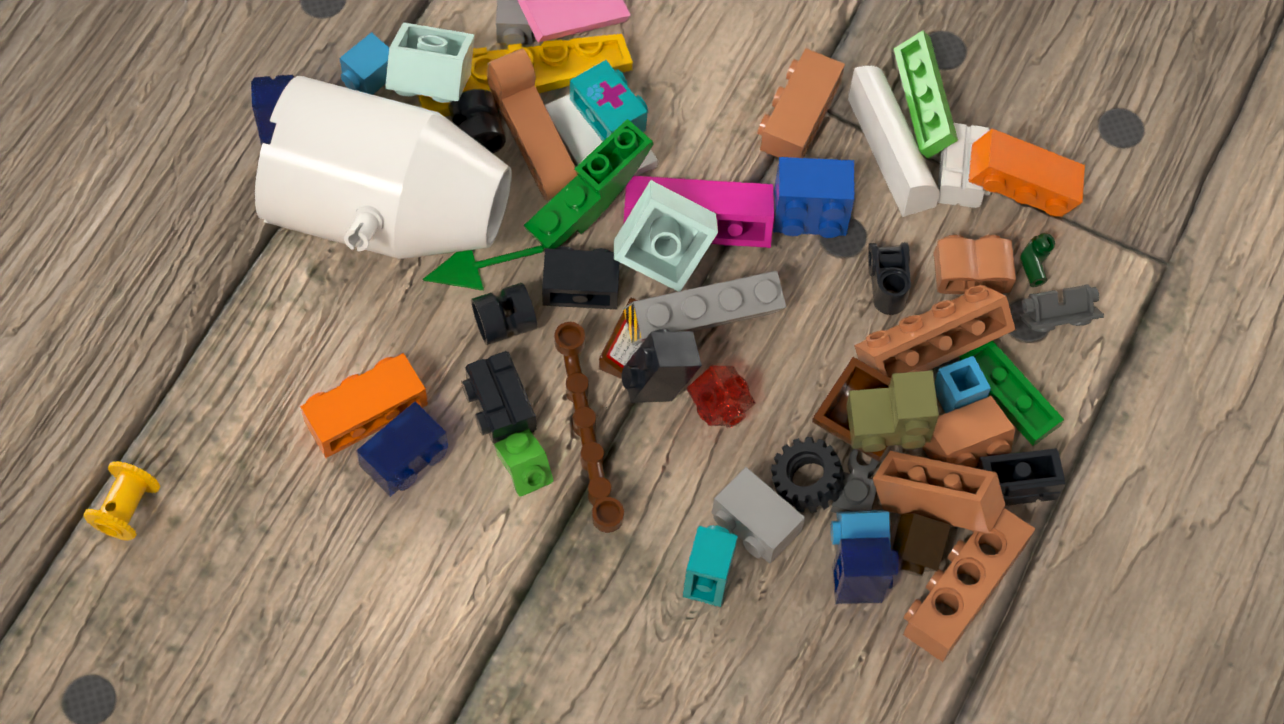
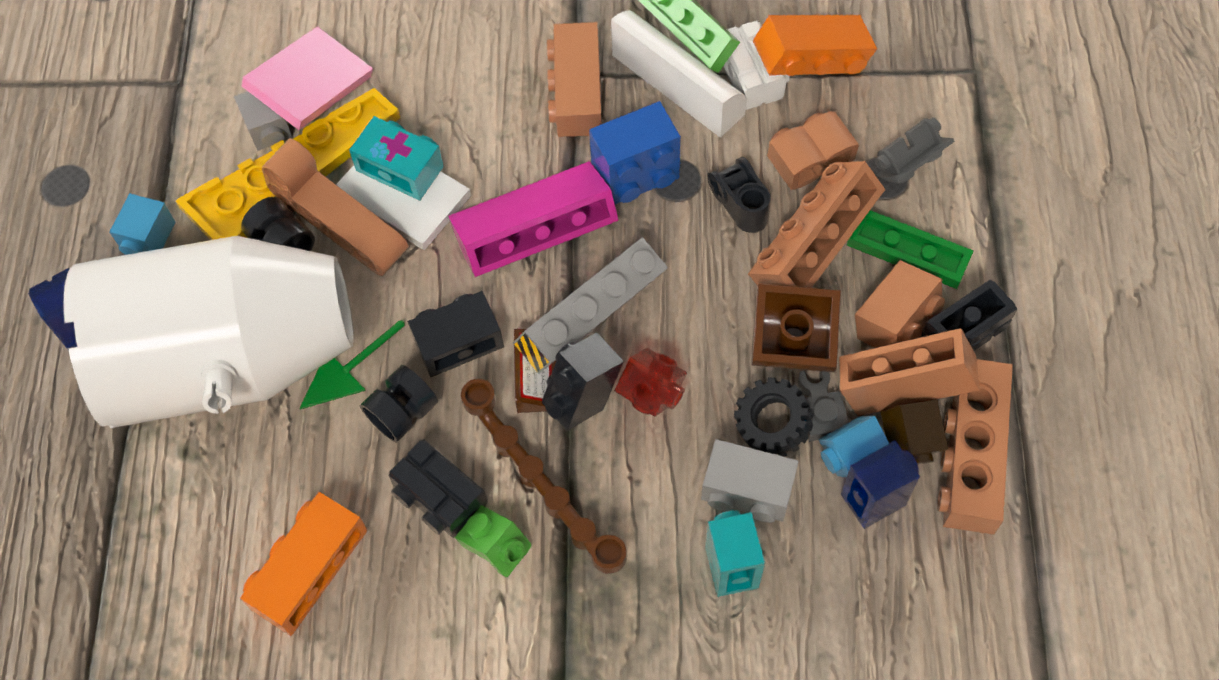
camera: 20 degrees left, 0 degrees up
(403, 449) = (367, 589): clear blue brick -> none
(429, 62) = (202, 195): light aqua brick -> none
(594, 188) = (424, 241): green slope -> none
(665, 236) = (519, 254): light aqua brick -> none
(894, 415) = (838, 316): olive brick -> none
(960, 384) = (867, 264): dark azure brick -> none
(1033, 257) = (858, 118): dark green arm -> none

